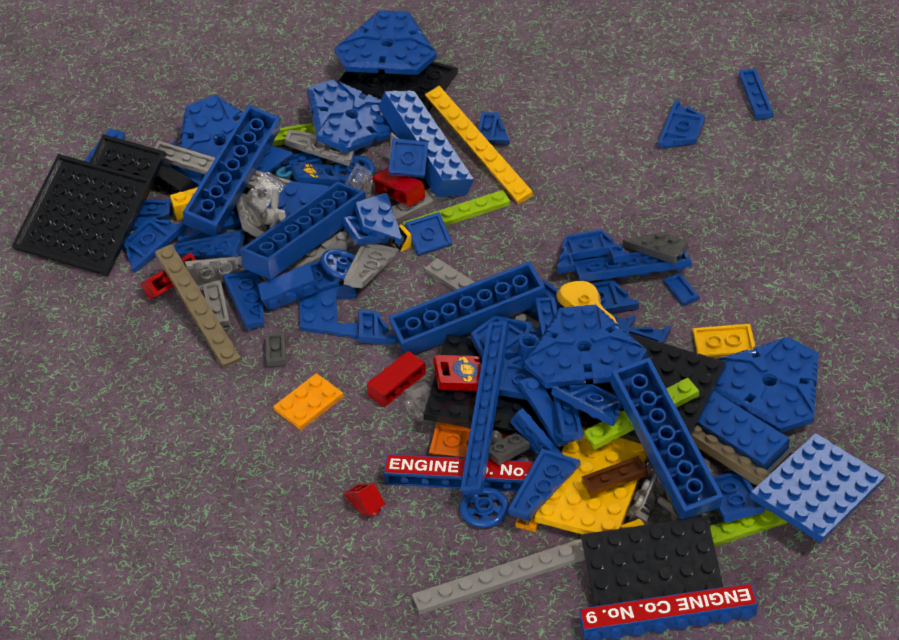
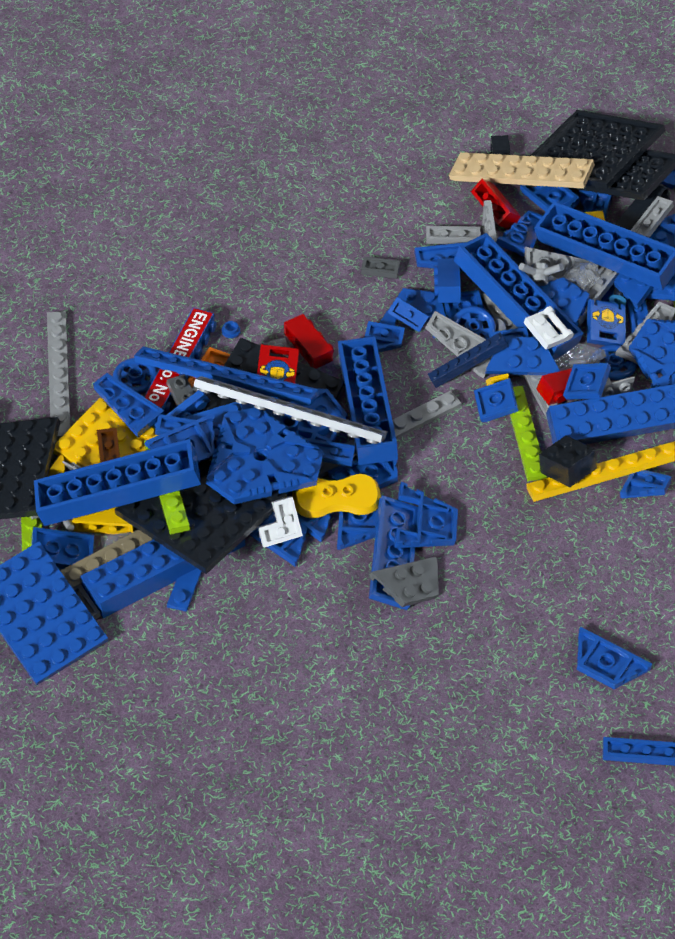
camera: 100 degrees right, 5 degrees up
(83, 290) = (500, 145): none -> black brick
(123, 260) = (522, 170): none -> tan plate
(197, 306) = (444, 213): dark tan plate -> none
(308, 401) = (309, 282): light orange plate -> none
(340, 310) = (408, 314): none -> blue plate
(349, 199) = (544, 331): none -> white plate
(365, 498) = (177, 296): red slope -> none
(393, 252) = (468, 360): none -> dark blue piece
(395, 446) = (230, 329): none -> blue plate
(495, 166) = (568, 461): none -> black brick
(523, 337) = (297, 412): none -> plate
(637, 328) = (286, 524): none -> white plate
(681, 289) = (349, 591): blue tile -> none
(723, 340) = (264, 607): yellow tile -> none
(775, 382) = (187, 613): blue plate -> none

